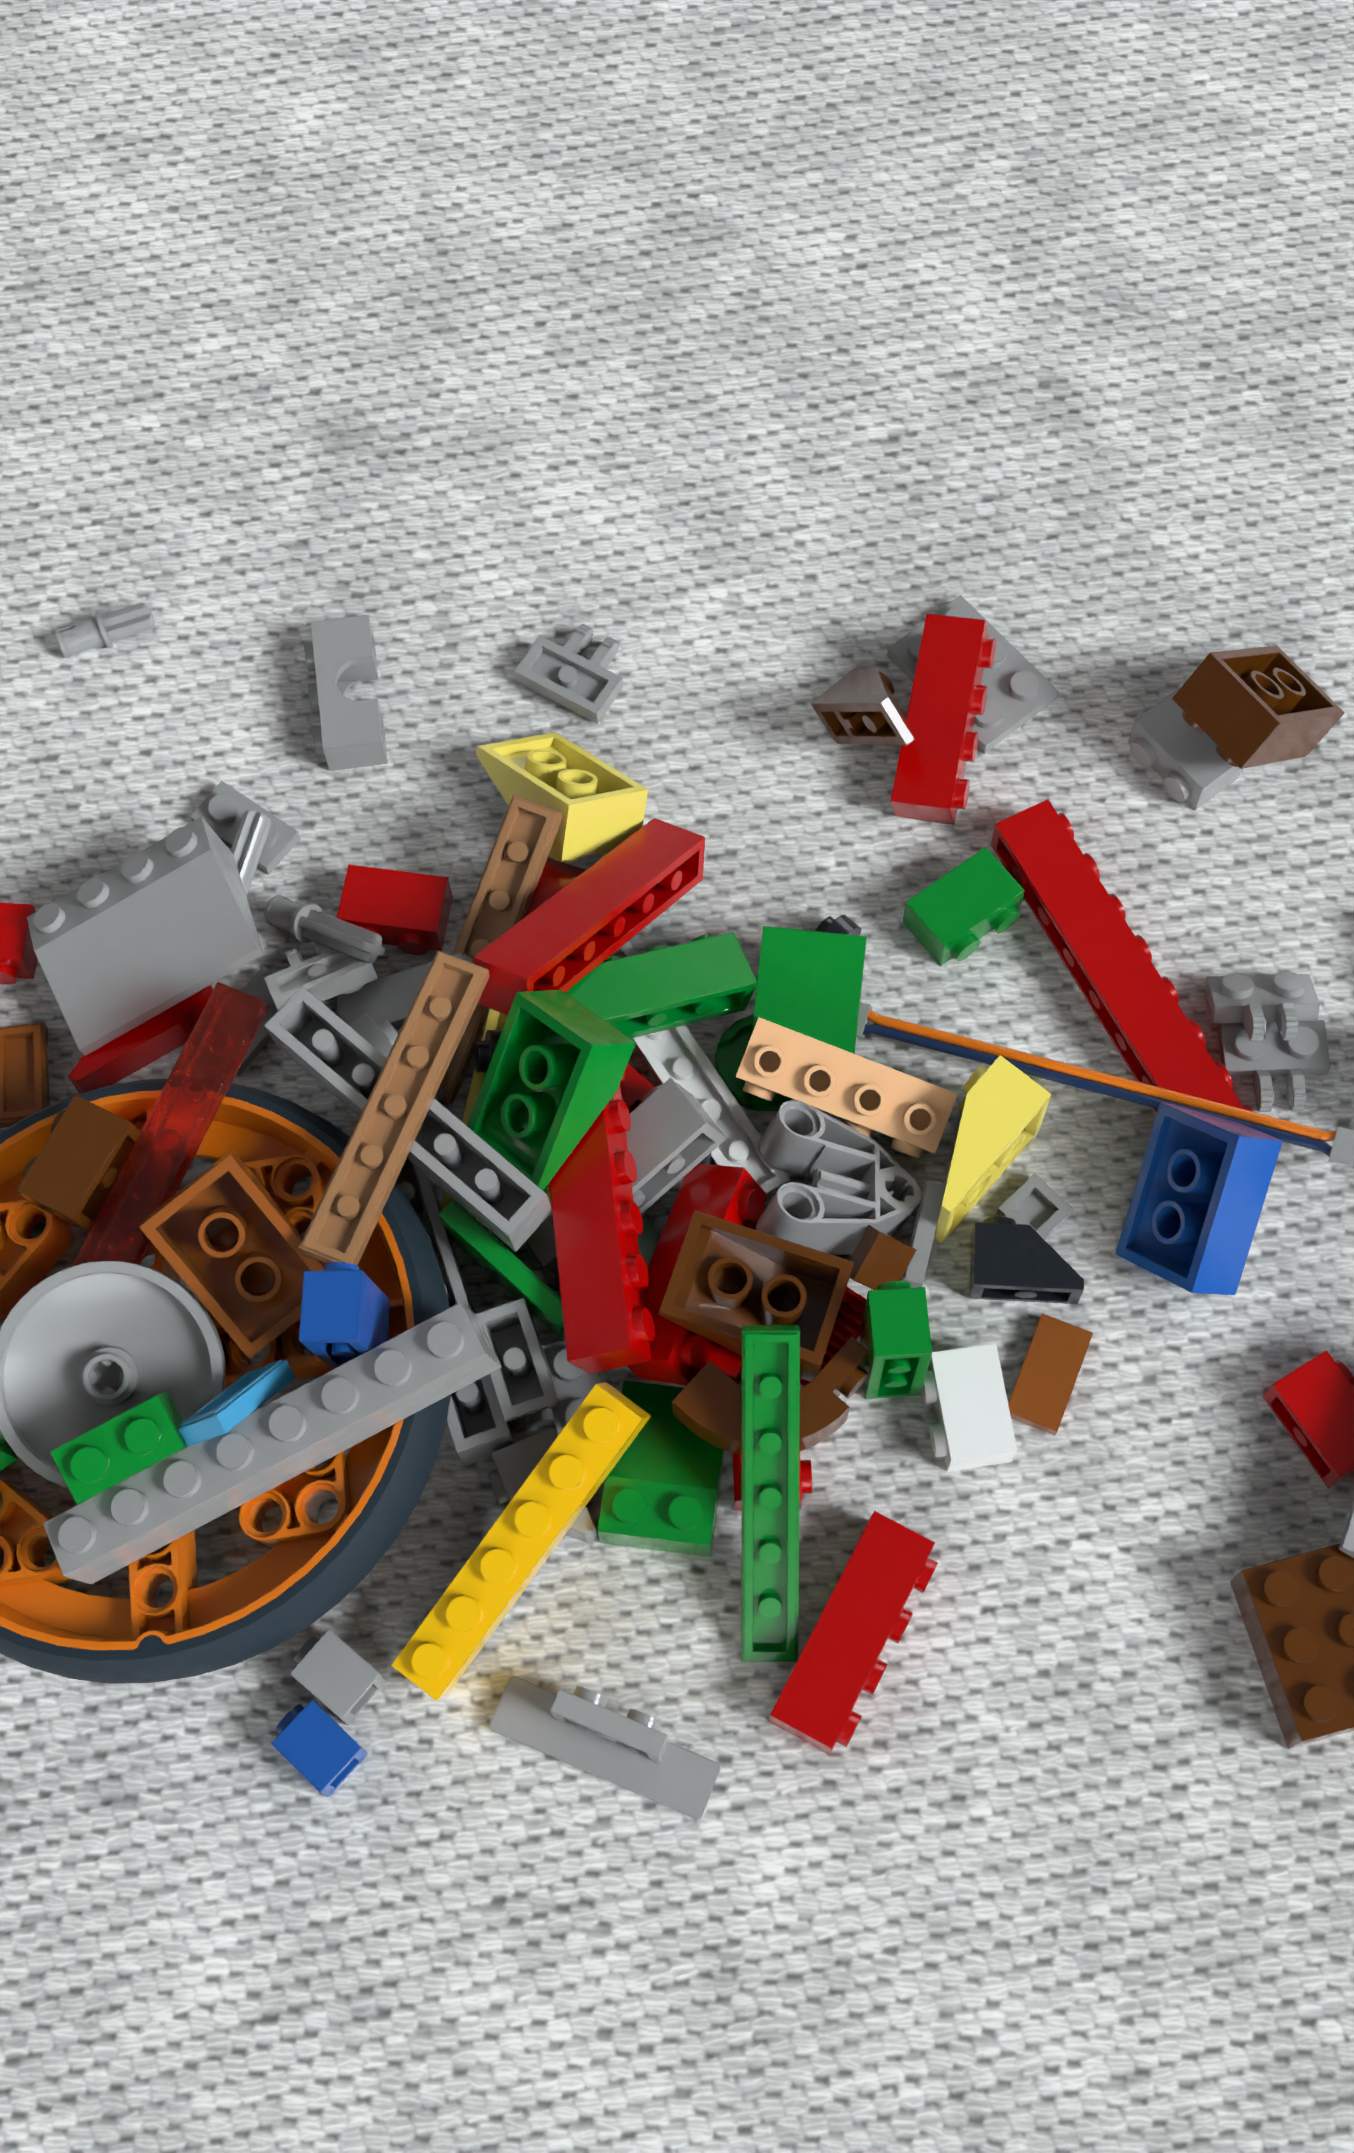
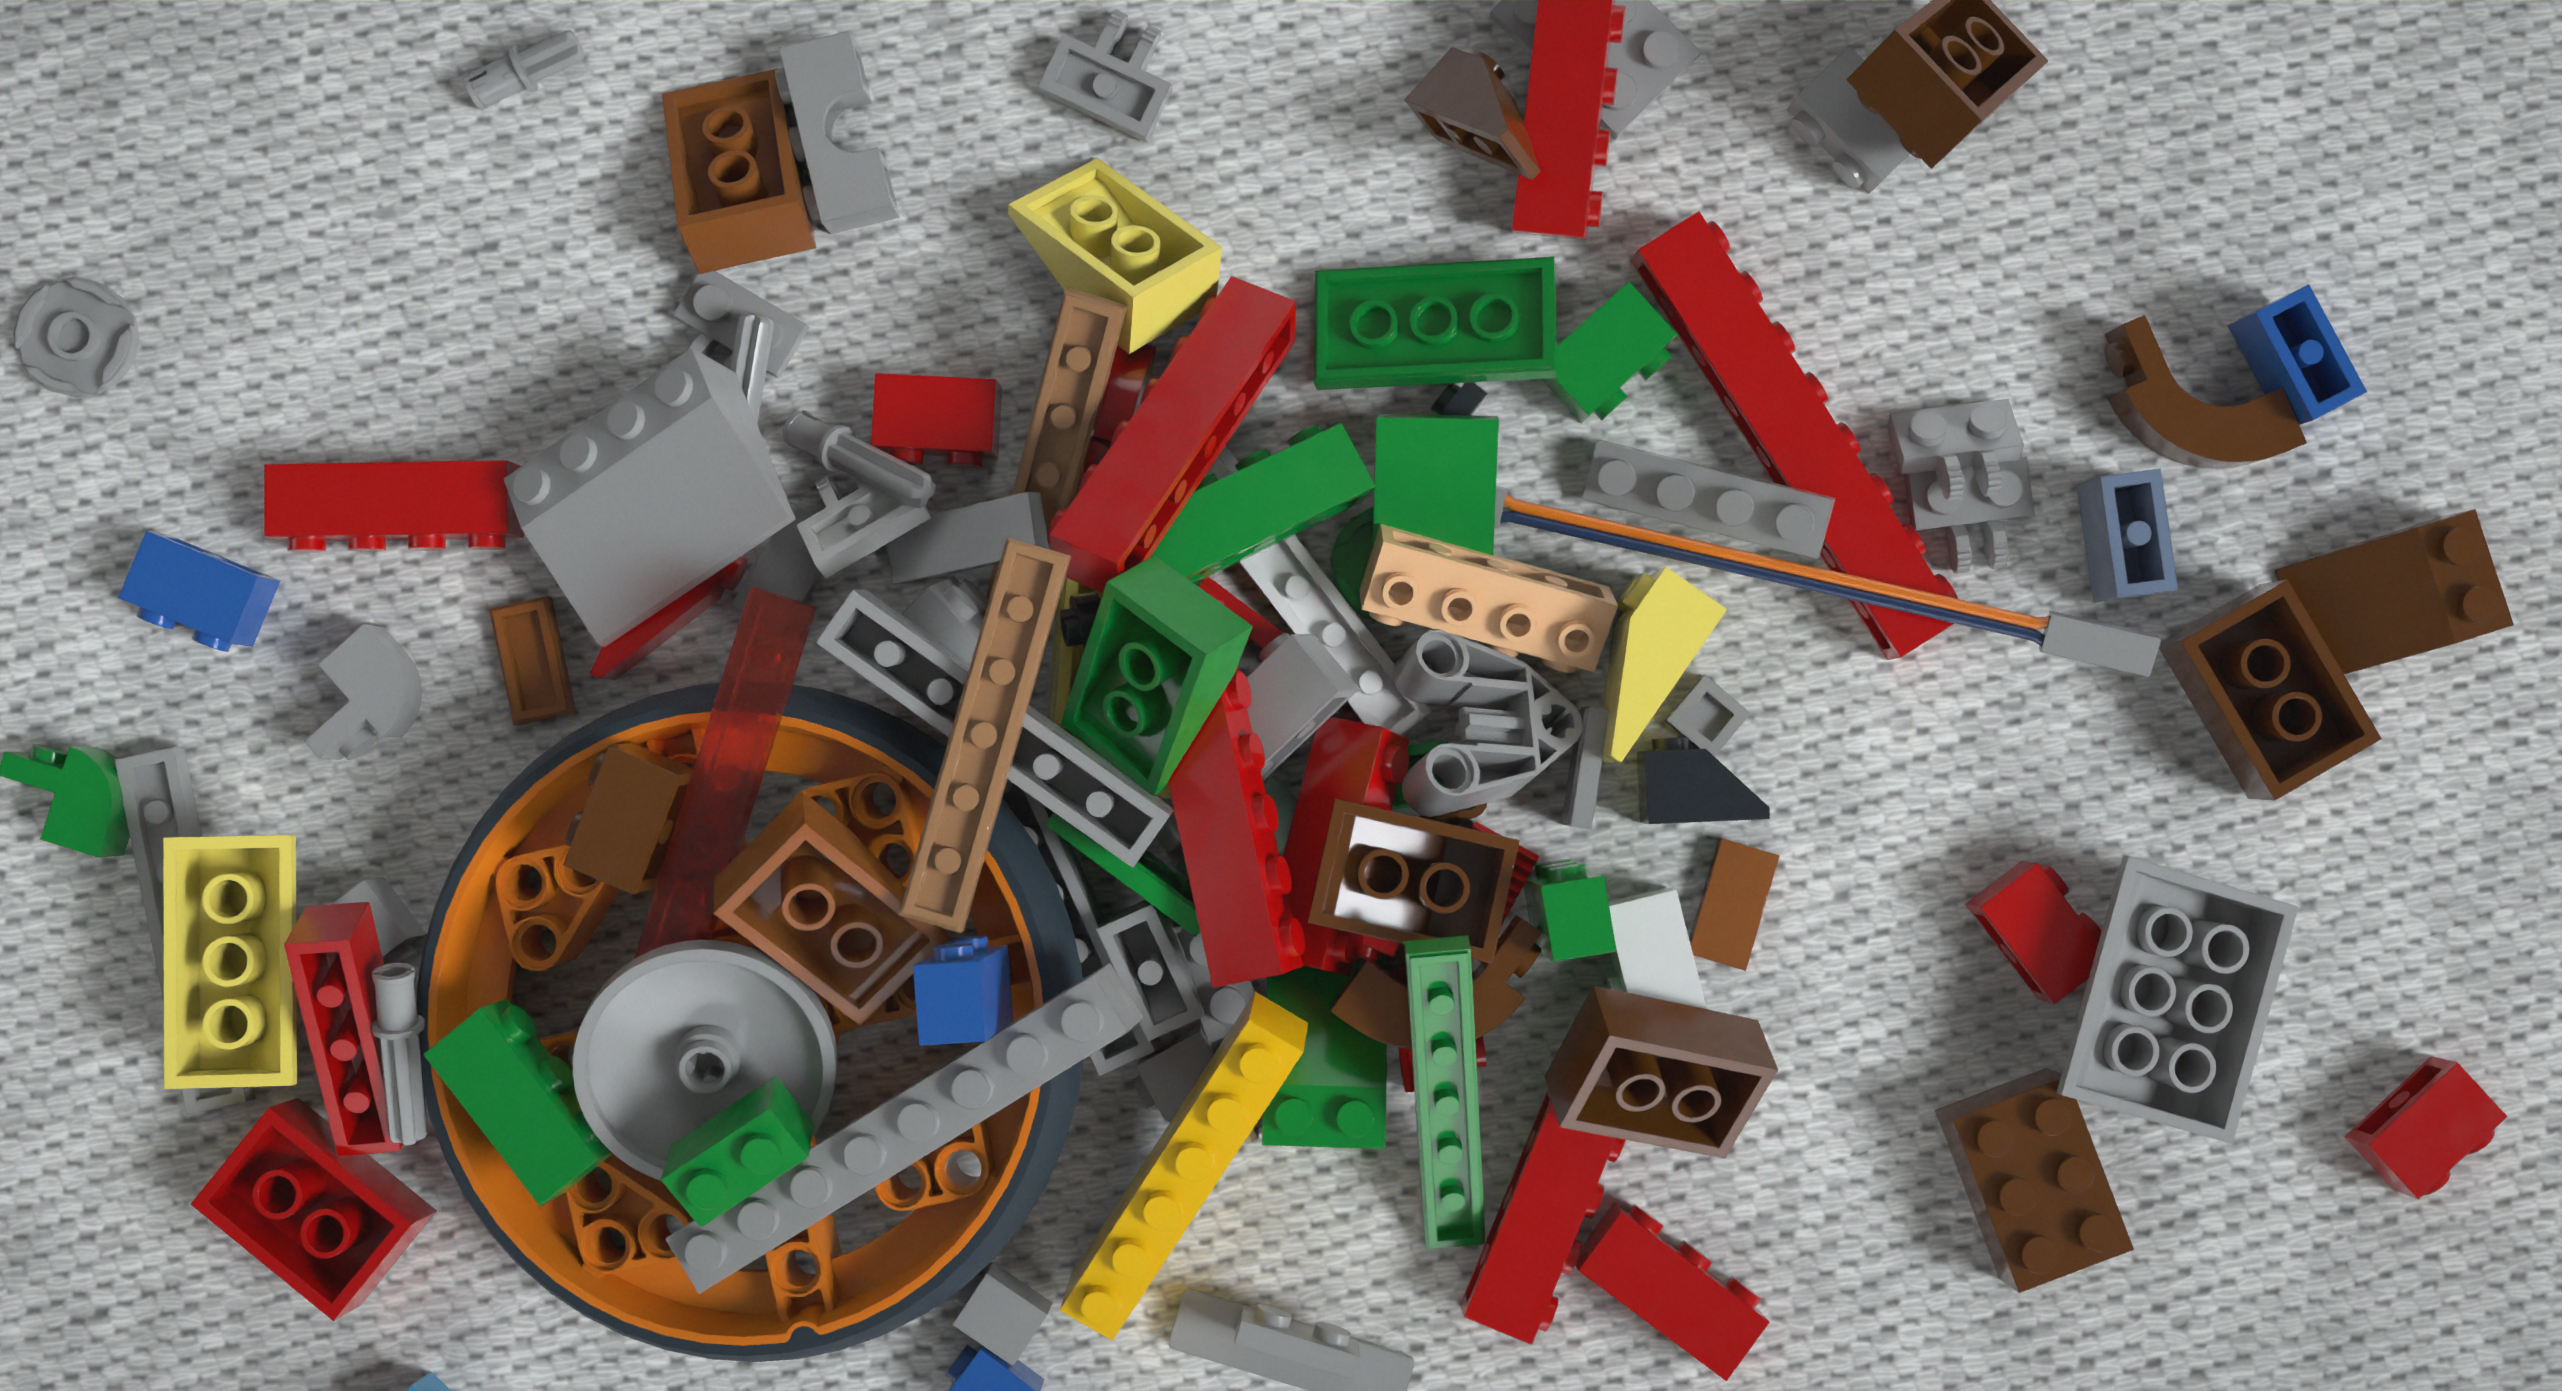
camera: 10 degrees left, 20 degrees up
(236, 1402) = (856, 1092): dark azure tile -> none
(260, 717) = (735, 173): none -> dark orange slope
(821, 870) = (1435, 324): none -> green tile
(880, 1259) = (1542, 811): reddish brown tile -> none
(969, 1497) = (1659, 1072): none -> reddish brown brick
(971, 1717) = (1672, 1288): none -> red brick
(1045, 1024) = (1708, 499): none -> light grey plate
(1198, 1199) = (1893, 704): blue slope -> none

